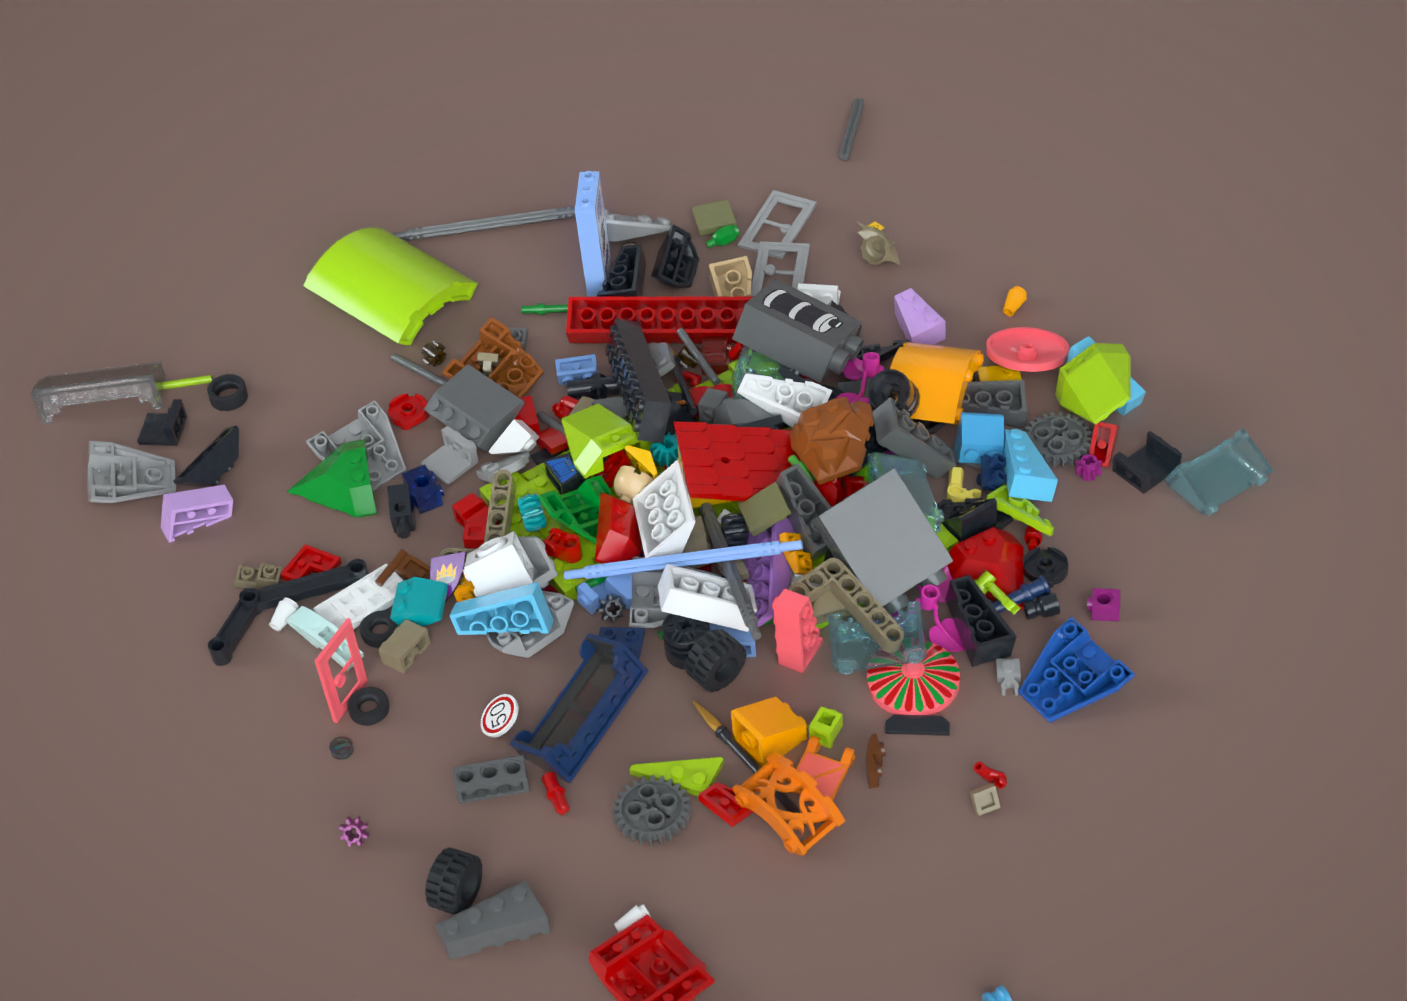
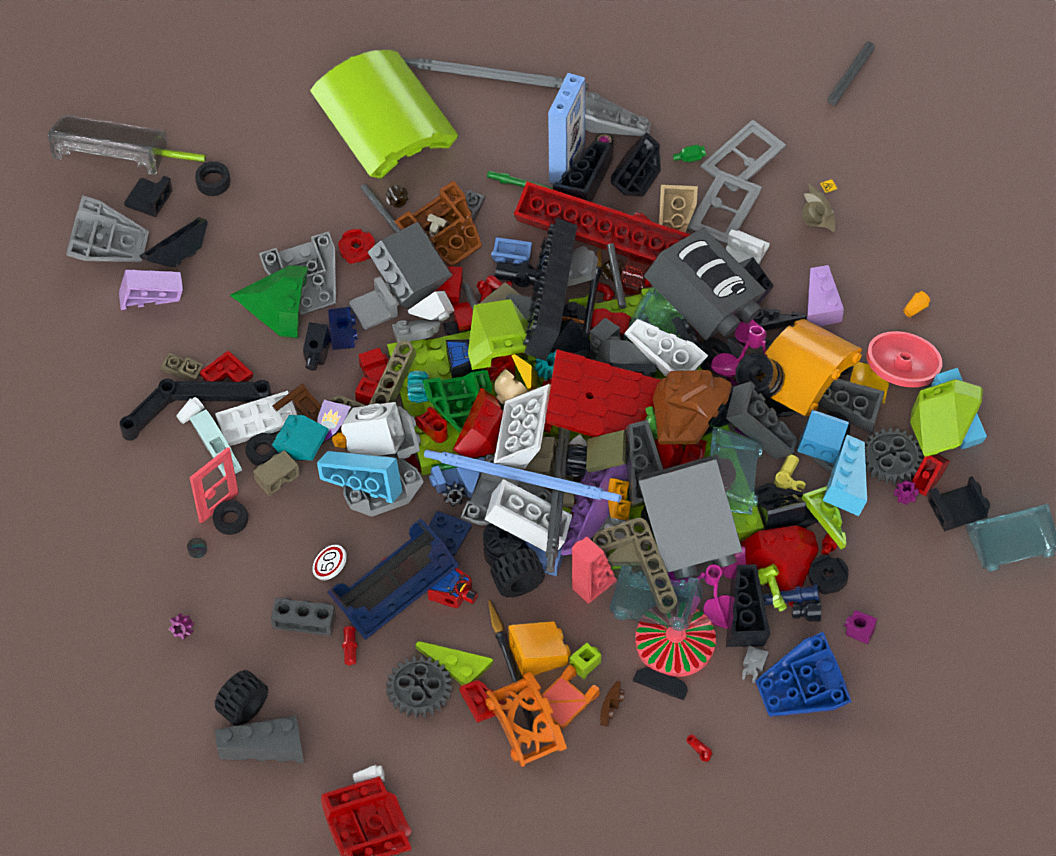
camera: 15 degrees right, 10 degrees up
(649, 702) = (453, 590): none -> torso
(713, 216) = (689, 130): olive tile -> none
(985, 799) = (685, 767): tile -> none
(991, 472) = (819, 473): dark blue hips -> none

